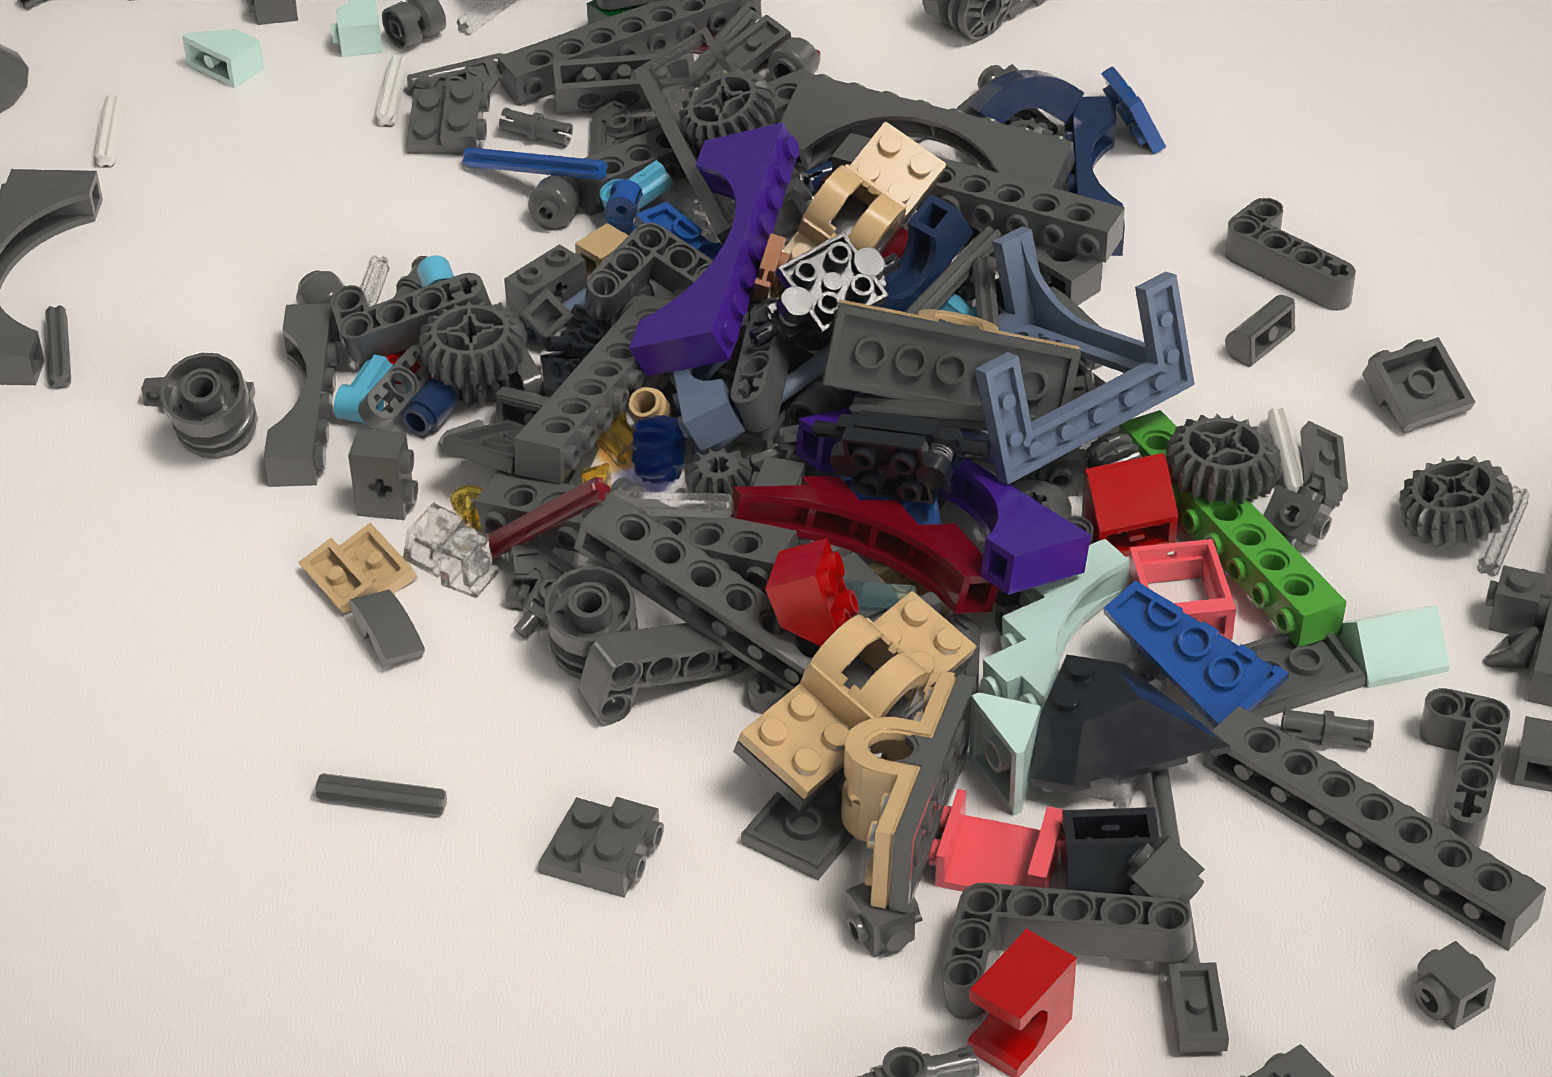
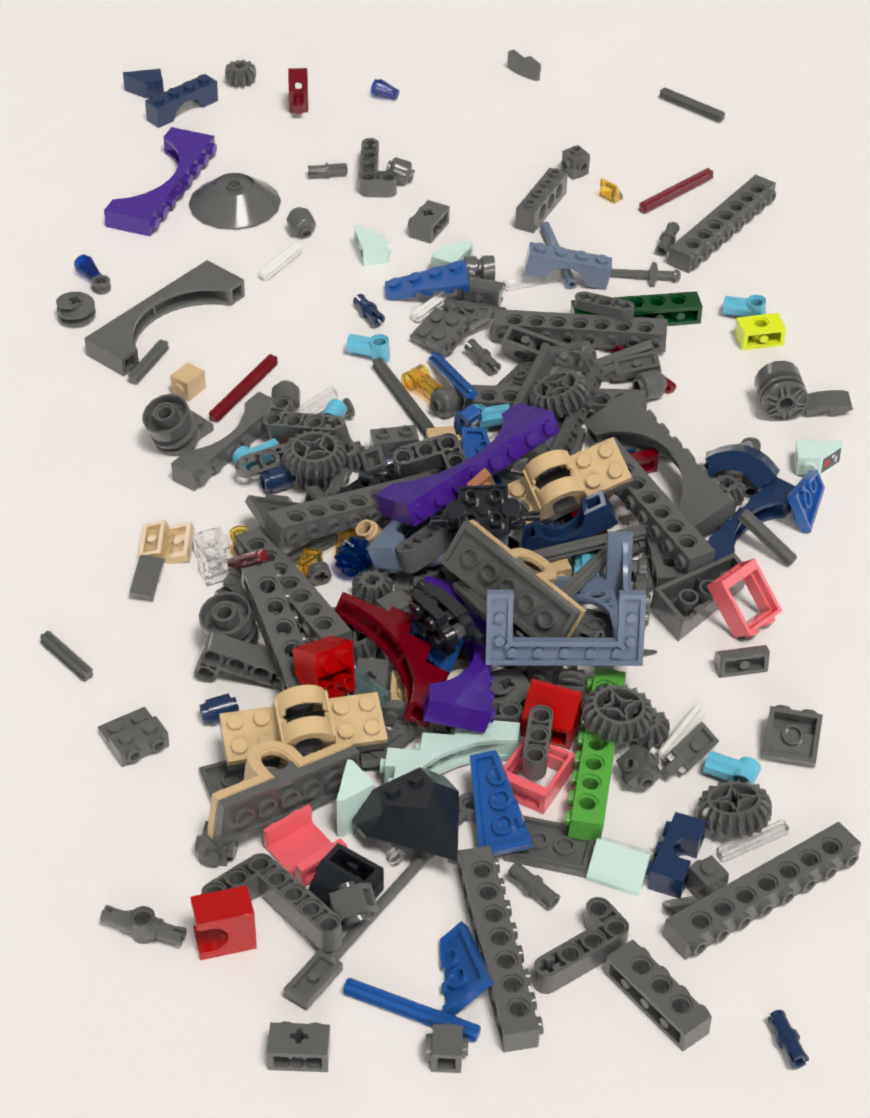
camera: 35 degrees right, 0 degrees up
(89, 66) = (301, 222): none -> dark grey head
(154, 343) = (188, 381): none -> tan brick
(242, 313) = (243, 388): none -> dark red axle
(312, 136) = (369, 310): none -> dark blue pin
(378, 179) = (373, 346): none -> medium azure piece
(381, 50) = (426, 282): none -> blue wing
(382, 474) = (213, 499): dark grey brick -> none
(444, 46) = (483, 292): none -> dark grey hinge
(478, 222) = (402, 395): none -> dark grey axle
(484, 191) = (420, 380): none -> clear yellow piece
(679, 504) = (308, 584): clear axle -> none
(685, 743) = (214, 706): none -> dark blue brick
(1079, 56) = (816, 455): none -> light aqua slope
(1134, 260) = (687, 601): none -> dark grey wedge
(1138, 172) = (767, 537): none -> dark grey axle
(1167, 545) = (537, 742): none -> dark grey beam
(1202, 252) = (759, 590): none -> coral window
(1263, 248) = (798, 609): dark grey beam -> none
(1340, 969) = (407, 1007): none -> blue axle
(1368, 877) = (464, 969): none -> blue wing
(1392, 461) = (729, 768): none -> medium azure piece
(1433, 574) = (669, 871): none -> dark blue arch

